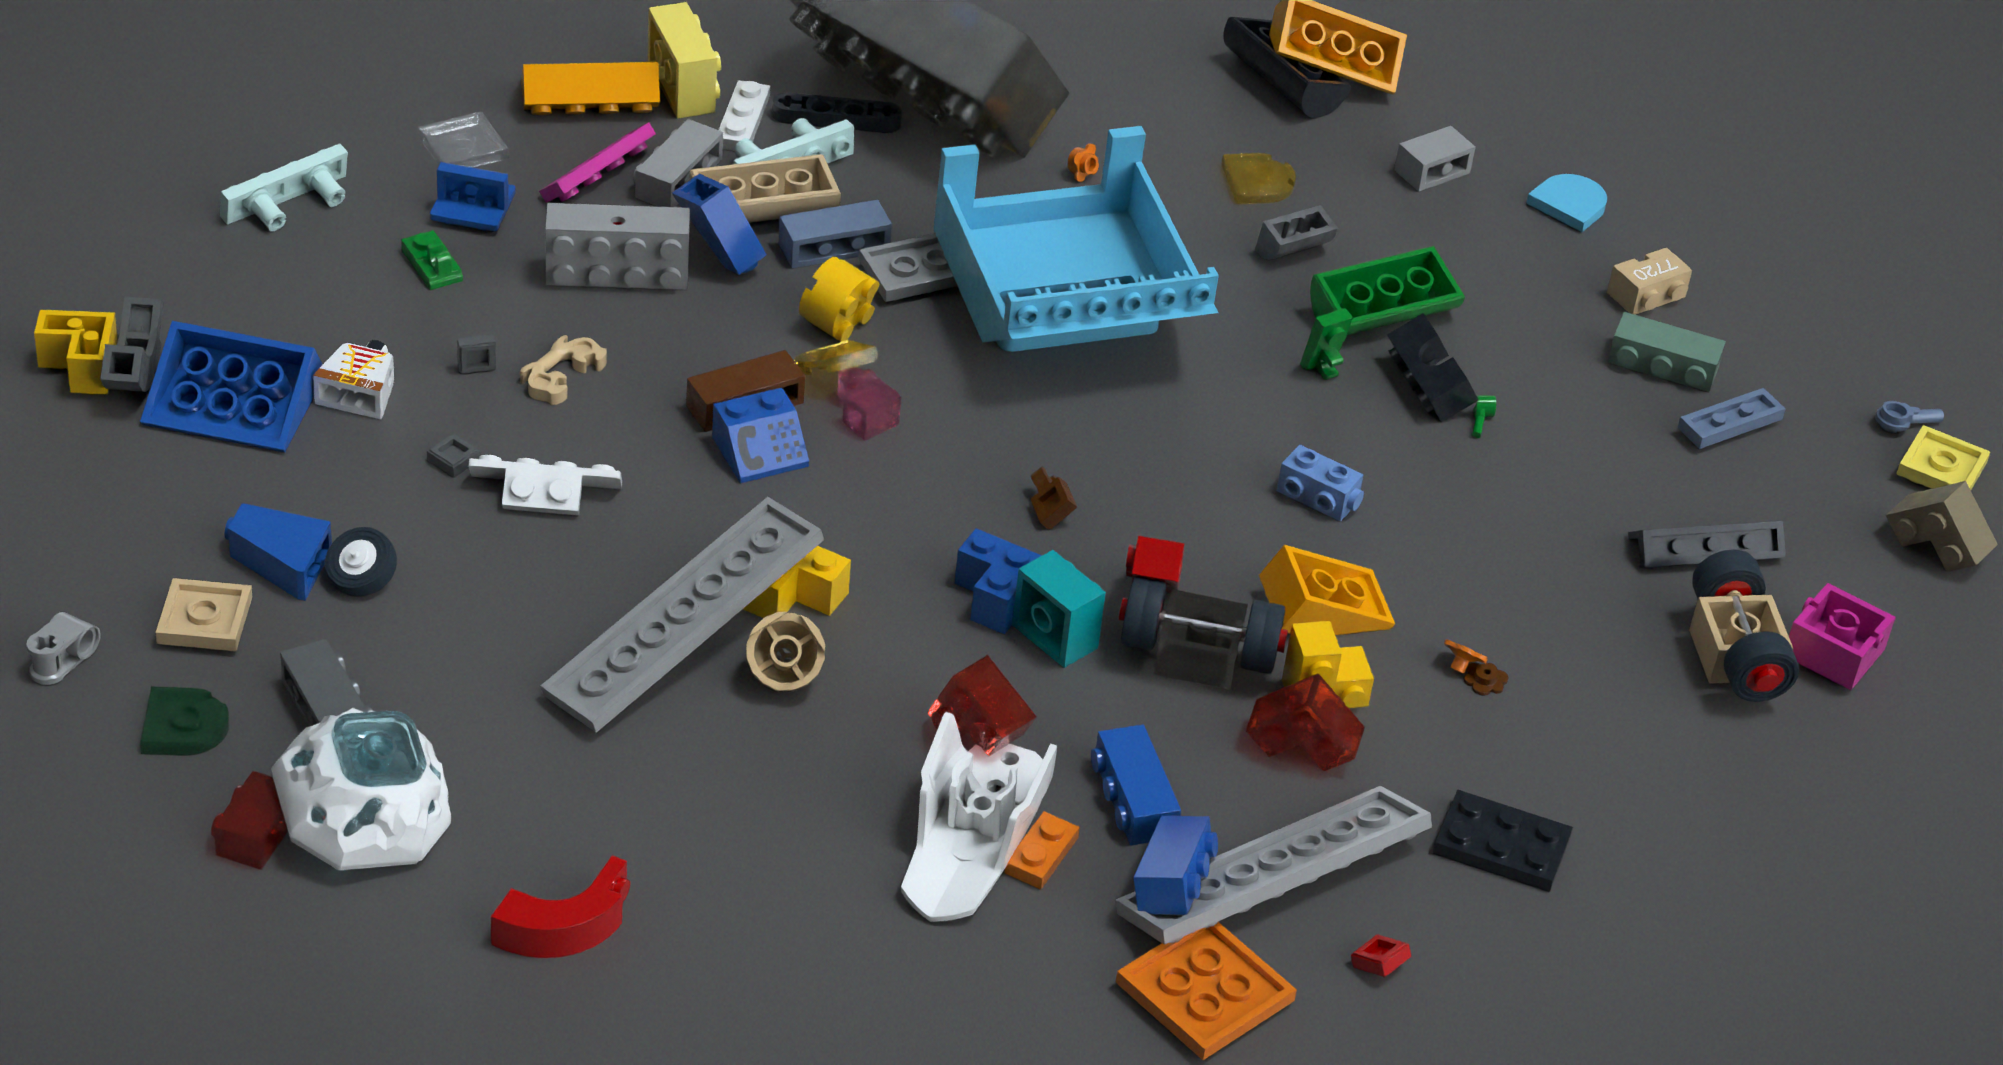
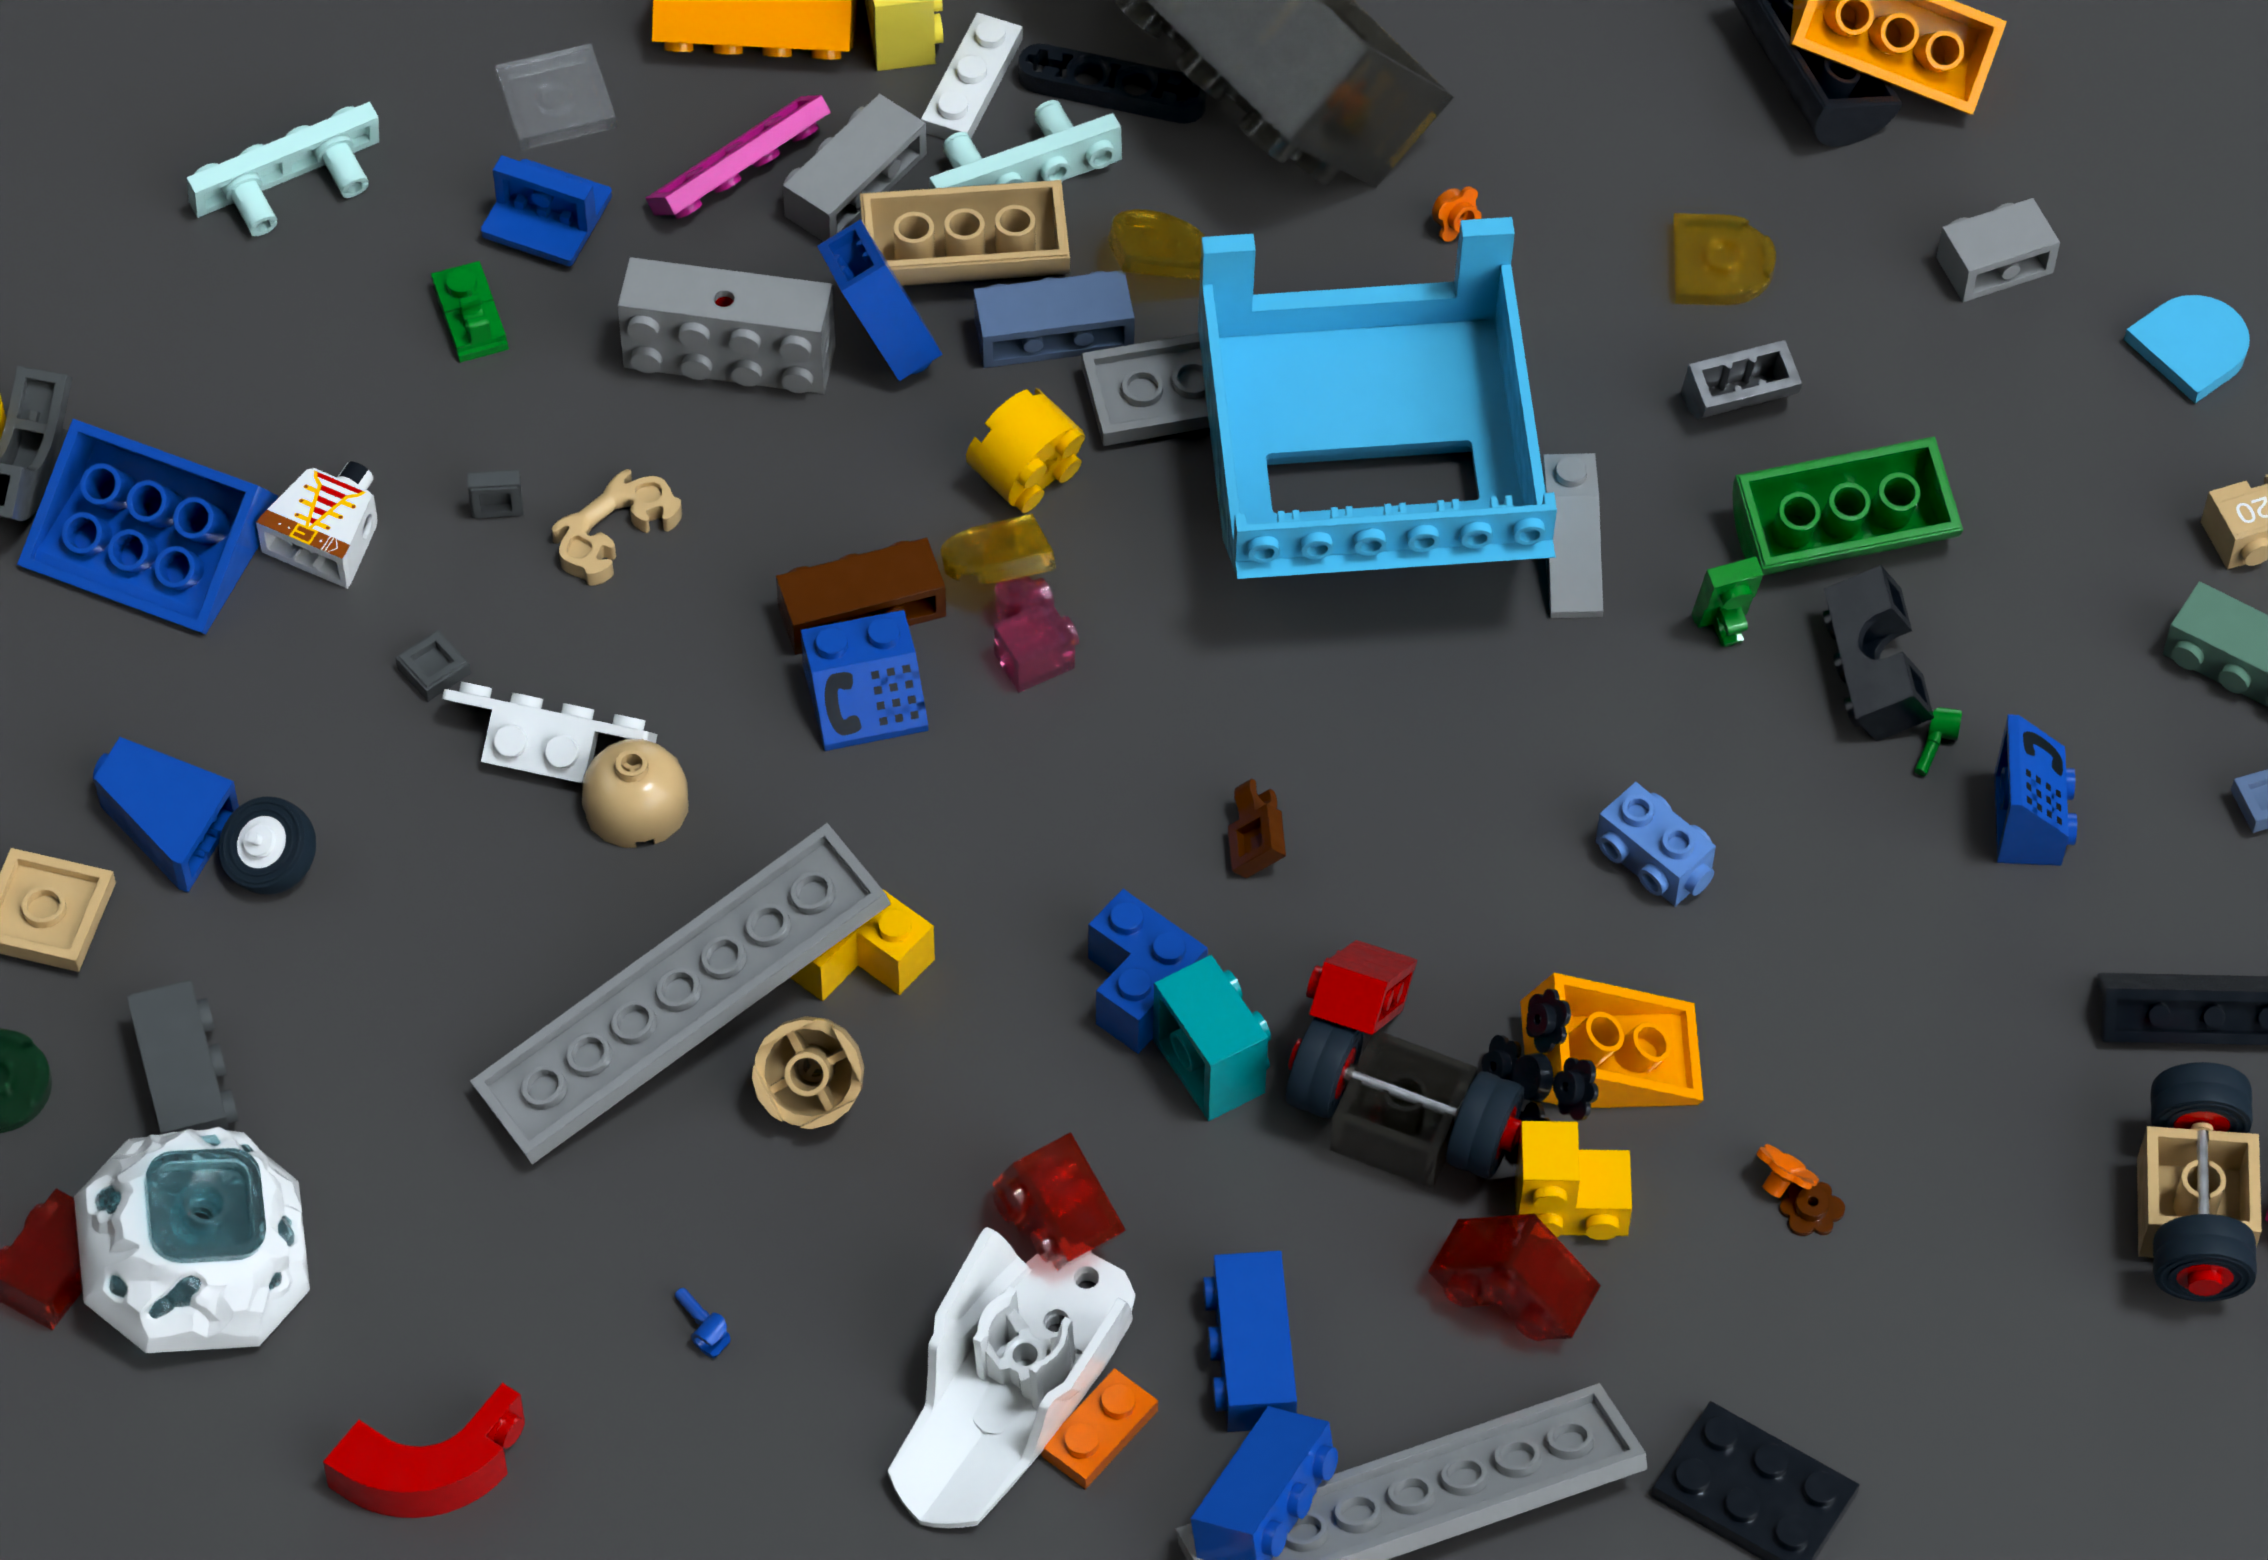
camera: 15 degrees right, 15 degrees up
(615, 512) = (634, 793): none -> tan cylinder
(749, 819) = (712, 1332): none -> blue hand
(897, 190) = (1156, 244): none -> clear yellow tile
(1217, 335) = (1576, 572): none -> light grey slope
(1318, 605) = (1534, 1071): none -> black plant
(1555, 435) = (2032, 797): none -> blue slope

